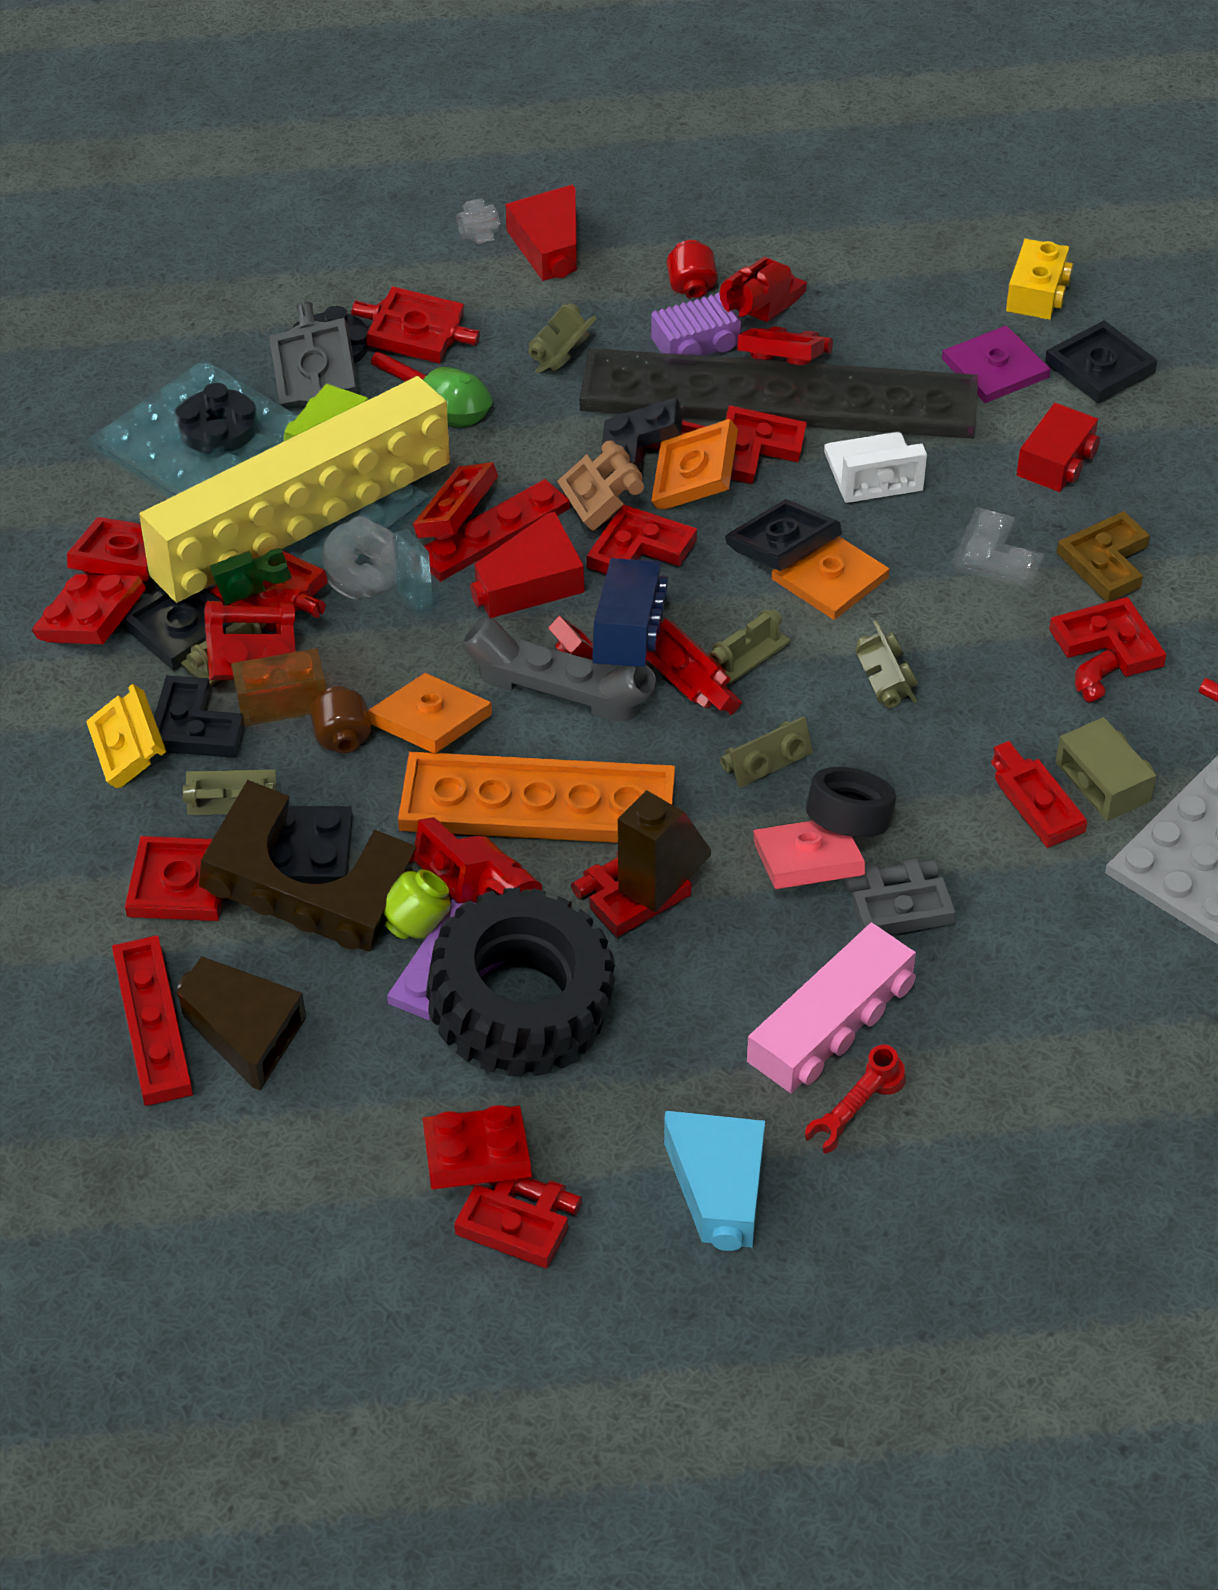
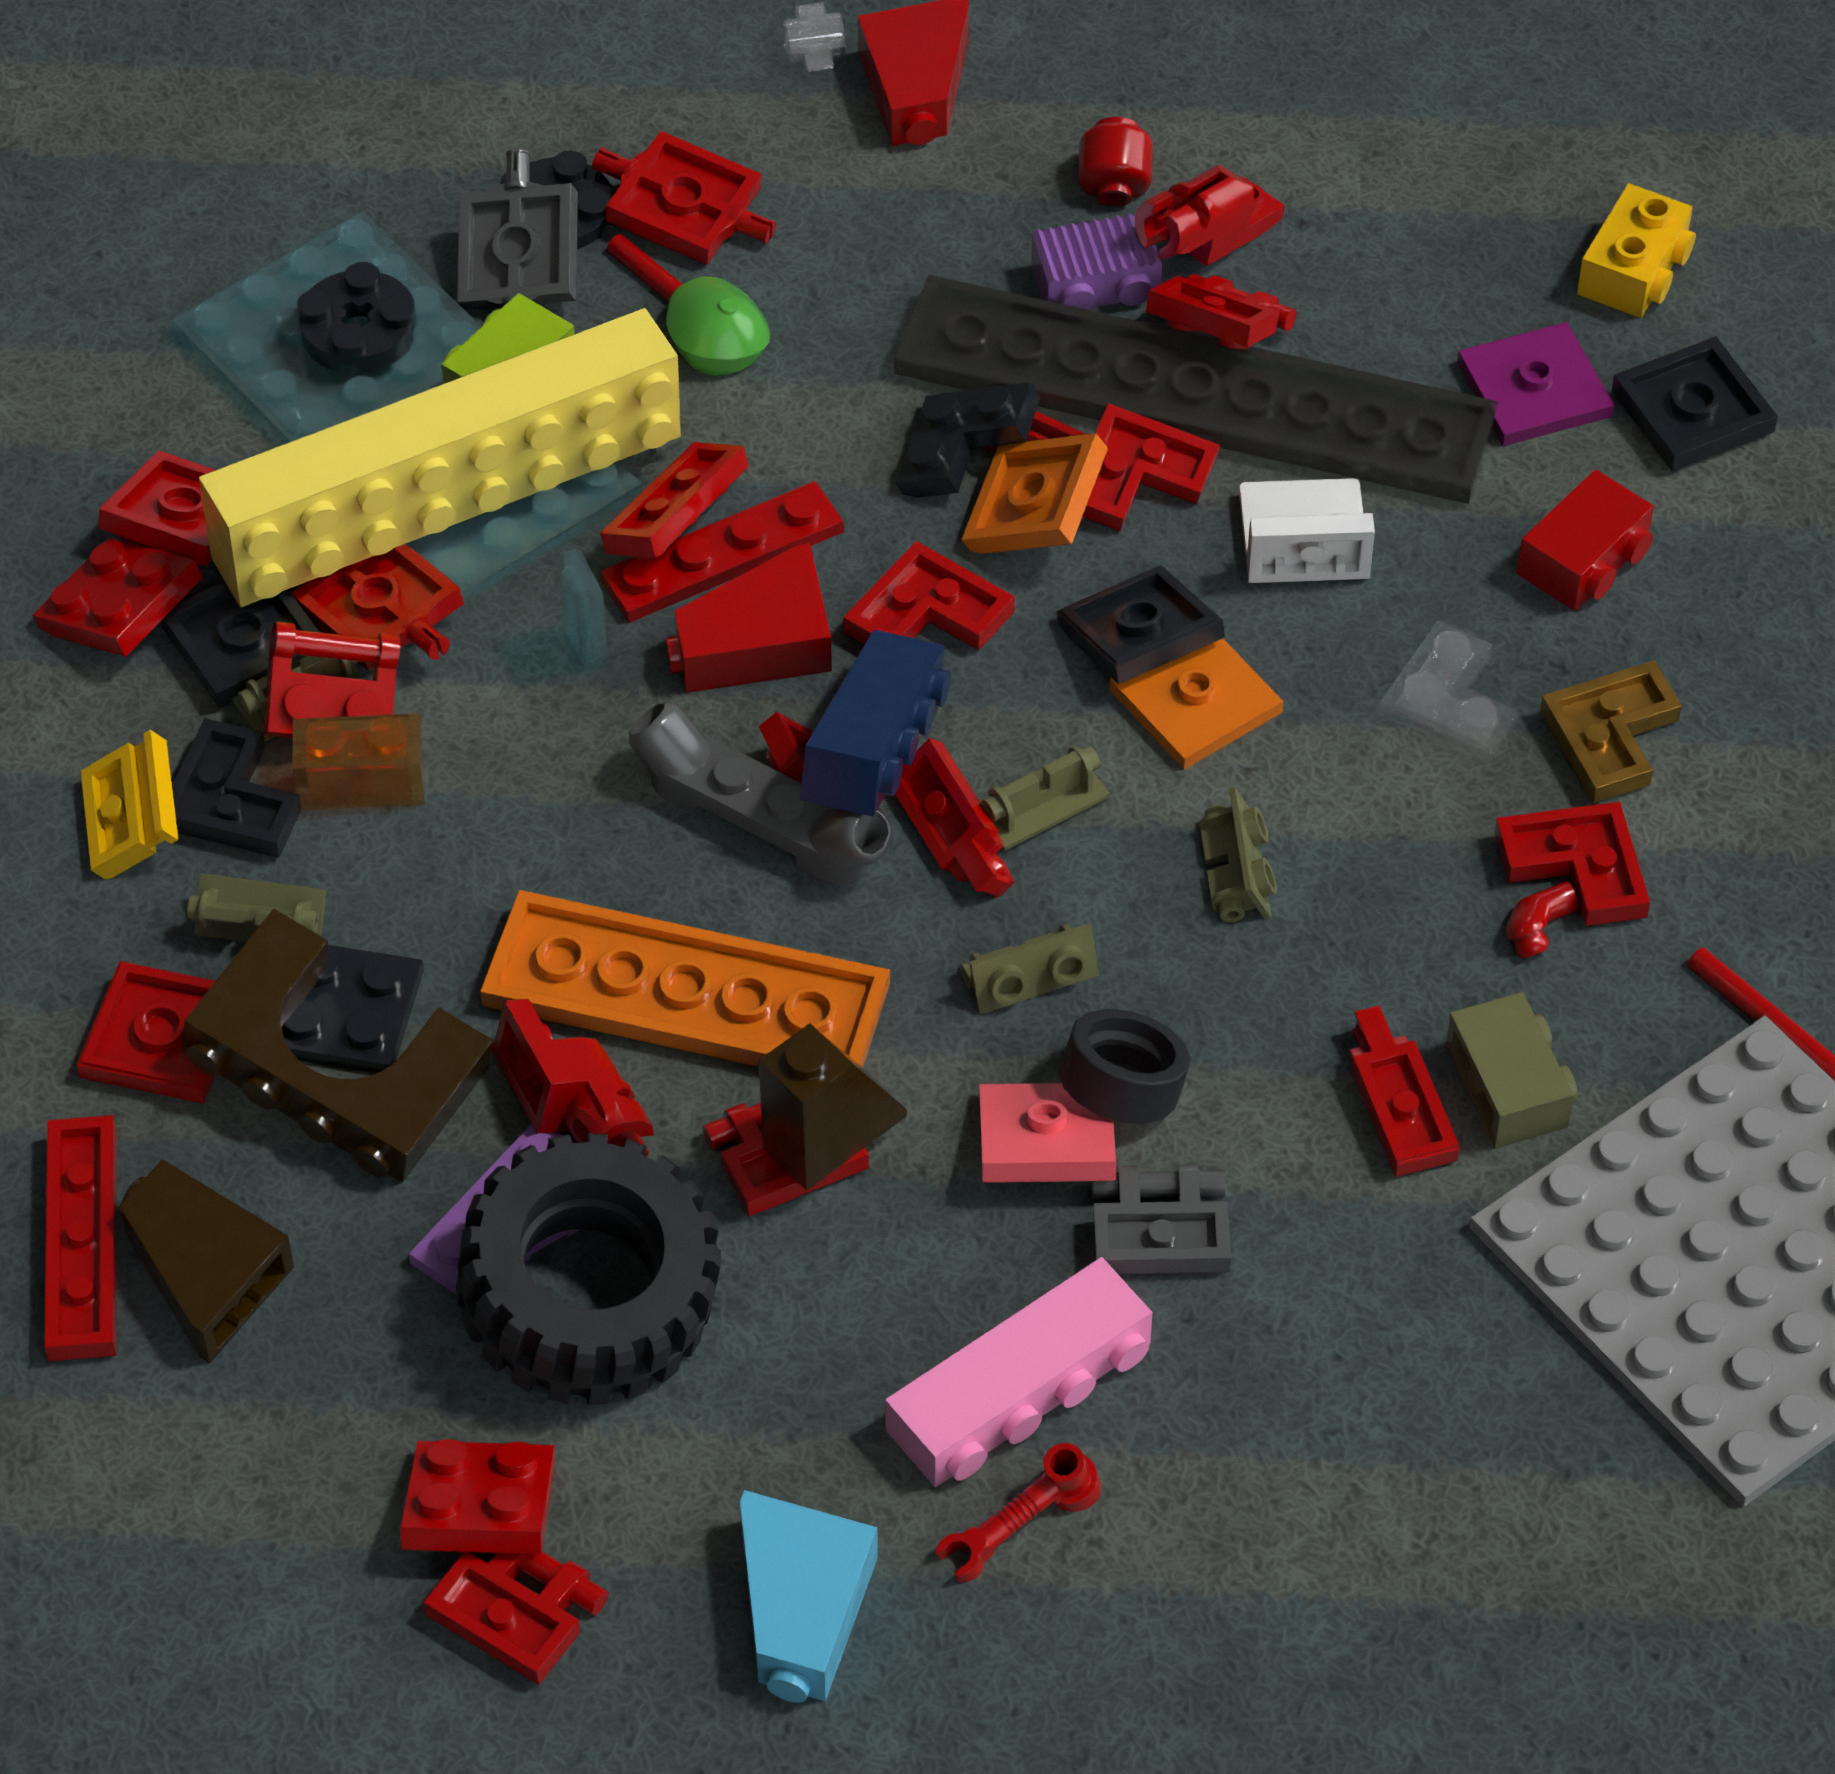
camera: 10 degrees right, 5 degrees up
(244, 576) = (342, 584): dark green plate -> none
(340, 557) = (486, 571): clear plate -> none
(340, 717) = (433, 825): reddish brown head -> none
(416, 904) = (476, 1126): lime head -> none
(430, 712) = (563, 832): orange plate -> none
(570, 332) = (876, 266): olive hinge -> none
(594, 494) = (875, 515): medium nougat plate -> none

